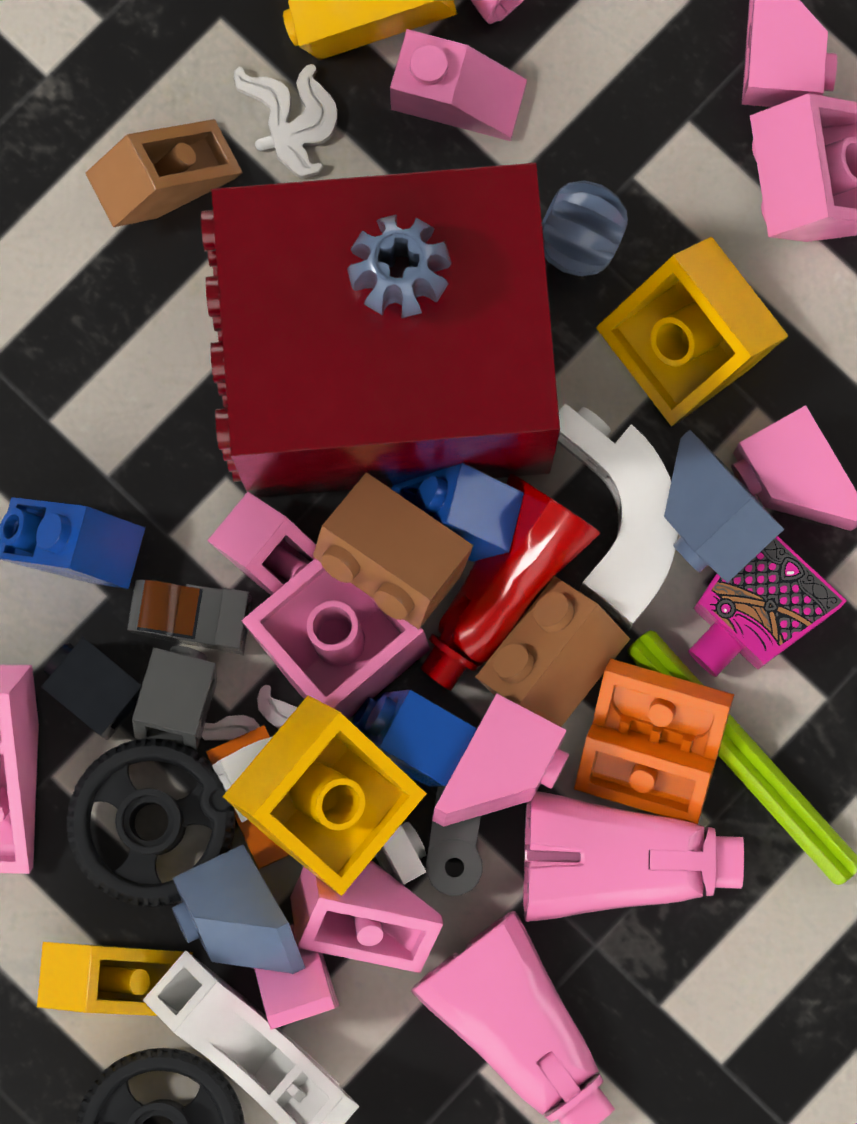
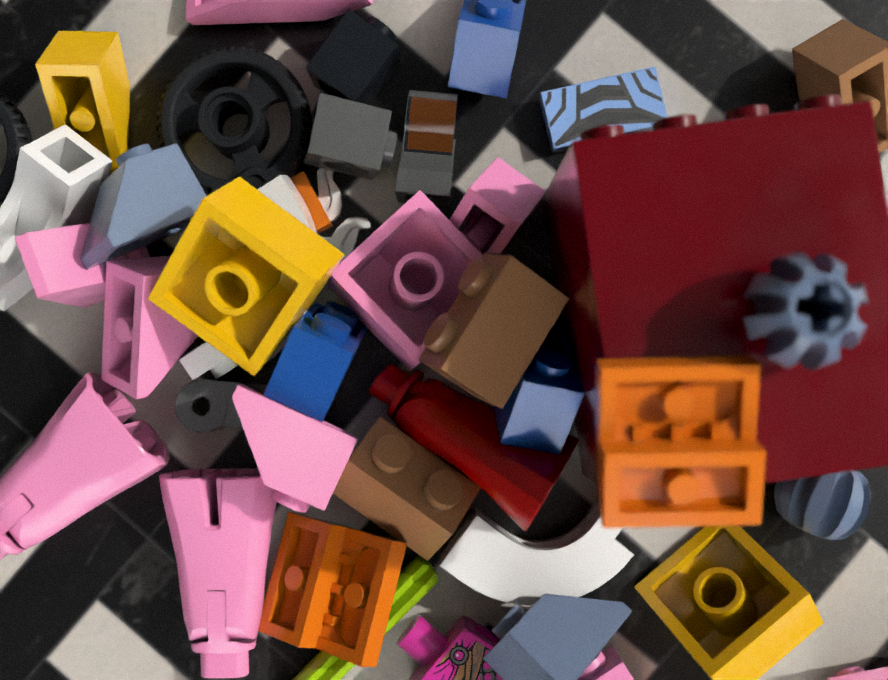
camera: 85 degrees right, 5 degrees up
(159, 427) = (621, 99): none -> tile
(507, 380) = (679, 442): none -> orange slope

